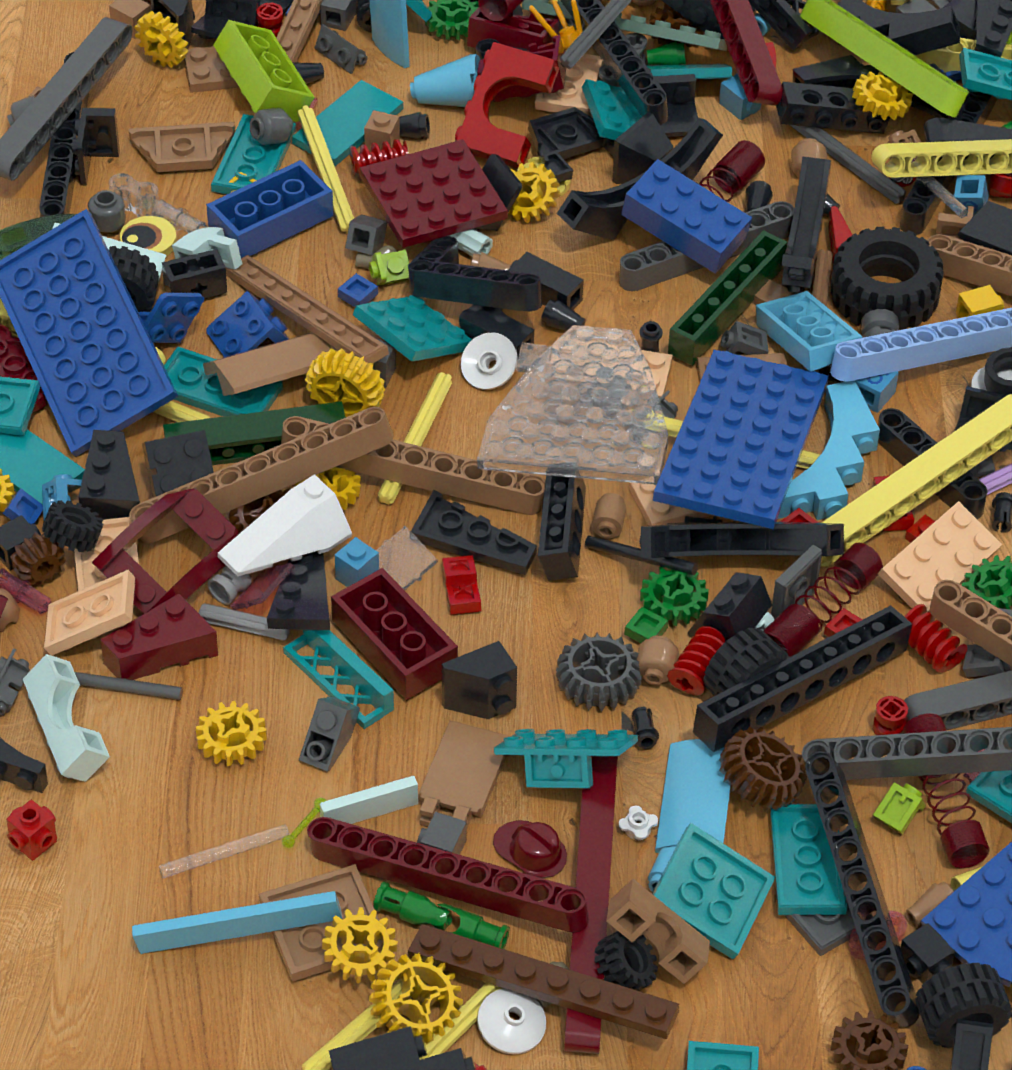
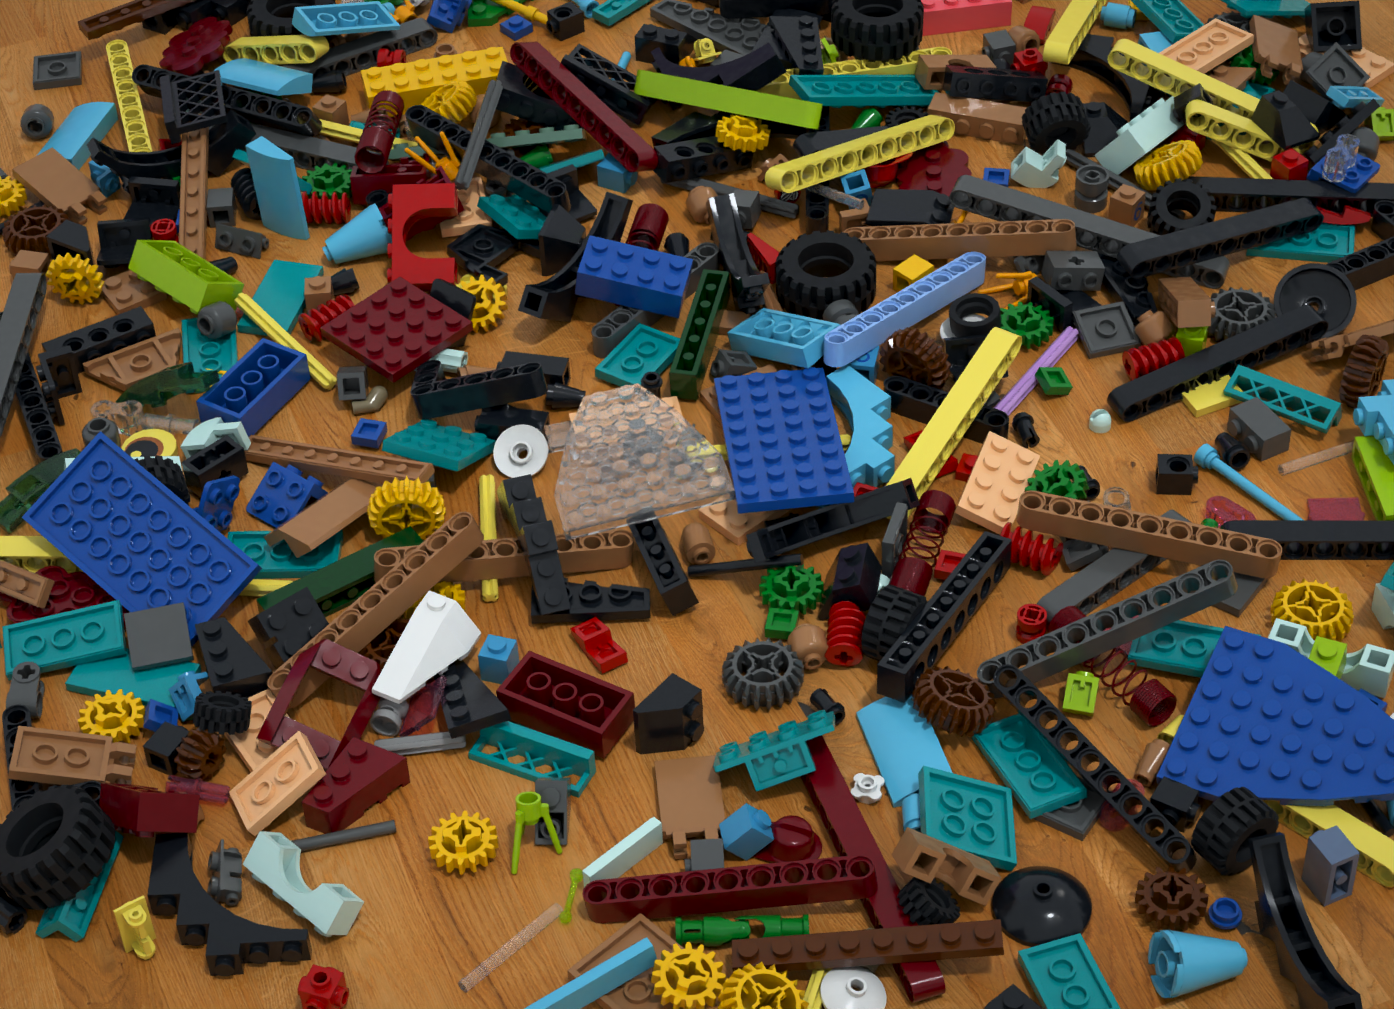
camera: 20 degrees left, 5 degrees down
(57, 429) = (158, 637): none -> dark grey tile
(159, 109) = (105, 336): none -> black brick
(191, 177) = (169, 383): none -> clear green slope
(296, 728) = (528, 812): none -> lime plant
(389, 267) = (388, 403): lime bracket -> none
(405, 558) = (538, 636): clear piece -> none
(434, 42) = (326, 208): none -> red piece
(443, 461) = (537, 542): none -> black arch
(494, 823) = (746, 831): none -> dark azure brick
(656, 299) = (638, 353): none -> teal plate
(741, 1019) = (1041, 905): none -> black dish
(846, 177) = (748, 207): none -> dark grey brick
(925, 399) = (915, 357): none -> reddish brown gear

